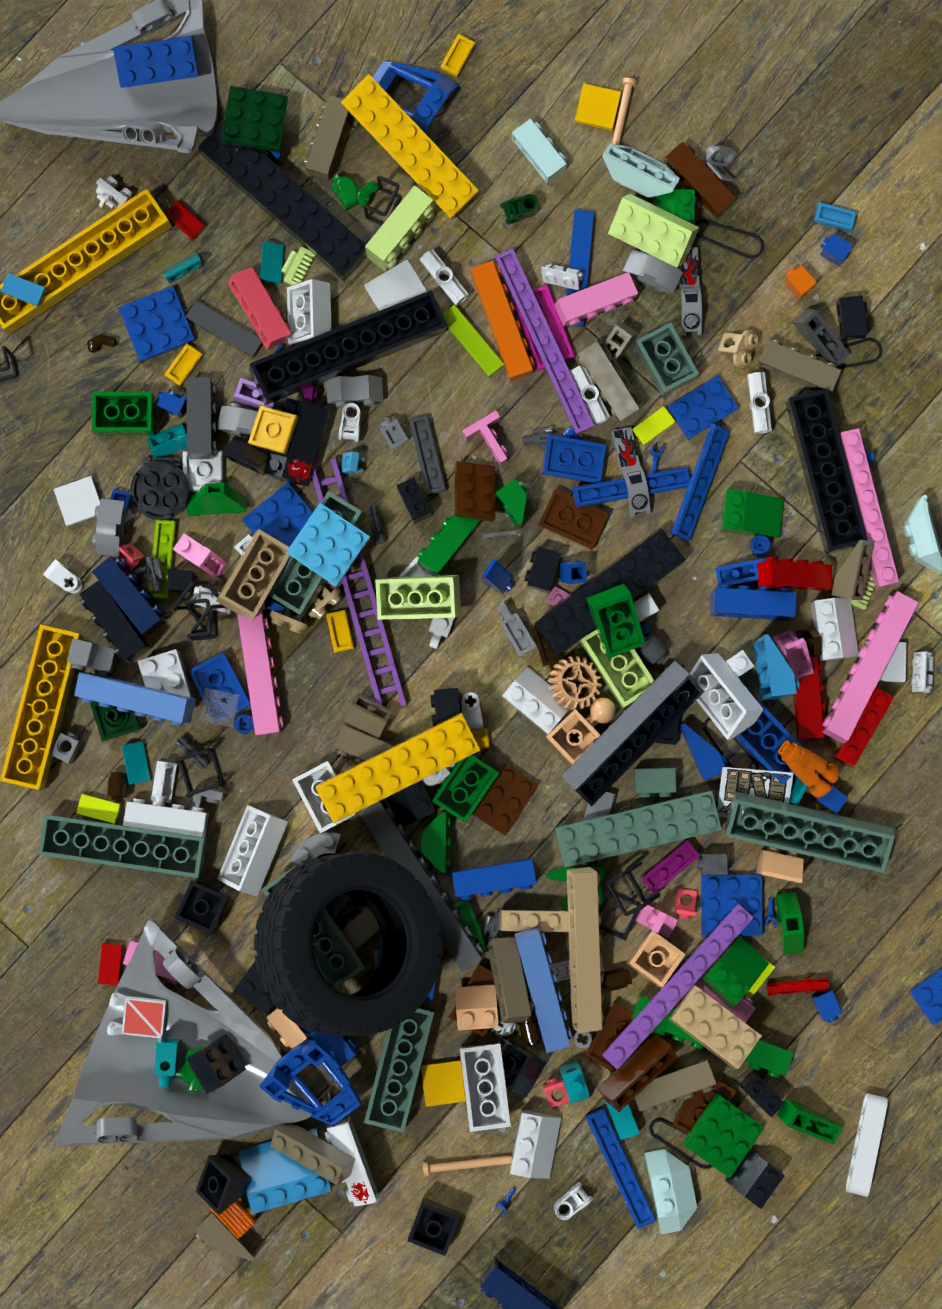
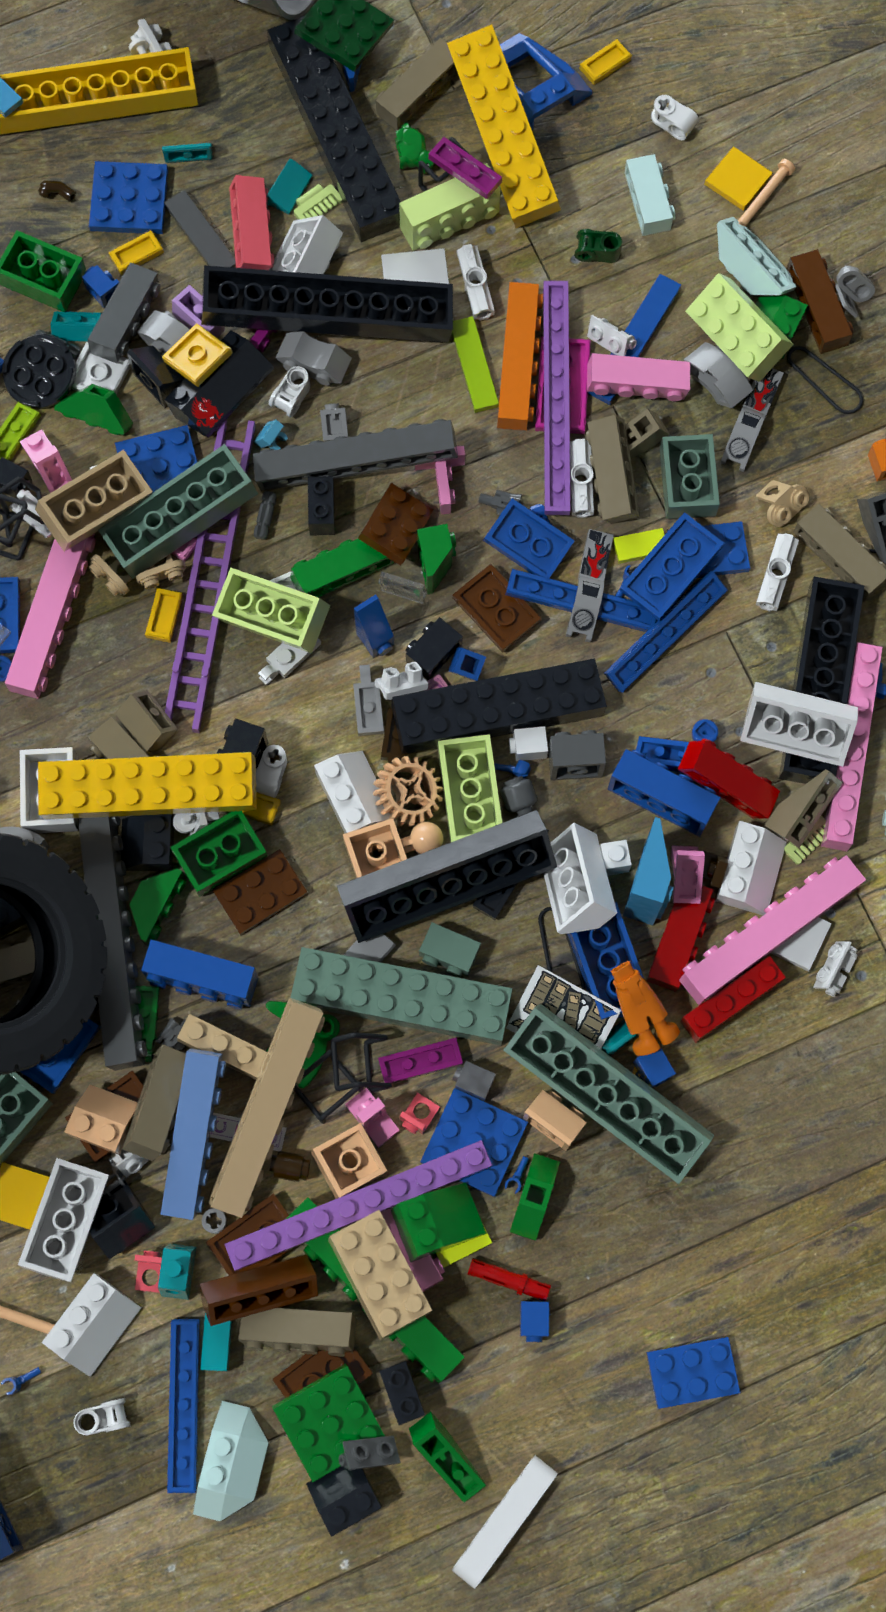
camera: 20 degrees right, 10 degrees down
(184, 220) = (216, 104): red tile -> none
(275, 606) = (104, 552): blue tile -> none
(328, 544) = (194, 501): medium azure plate -> none
(401, 198) = (465, 168): none -> magenta plate
(421, 453) = (355, 454): none -> dark grey brick
(427, 455) = (358, 486): dark grey tile -> none
(530, 1031) = (154, 1179): dark brown brick -> none
(532, 80) = (675, 118): none -> white piece
(532, 609) = (395, 683): none -> white hips
(616, 620) = (488, 735): green slope -> none
(671, 1147) = (243, 1381): black piece -> none
(680, 605) = (576, 755): none -> dark grey brick
(684, 434) = (671, 566): none -> blue plate
(705, 756) = (525, 947): blue slope -> none
(751, 513) = (710, 692): green slope -> none
(759, 1144) = (369, 1453): none -> dark grey hinge
(827, 513) = (799, 724): none -> white slope

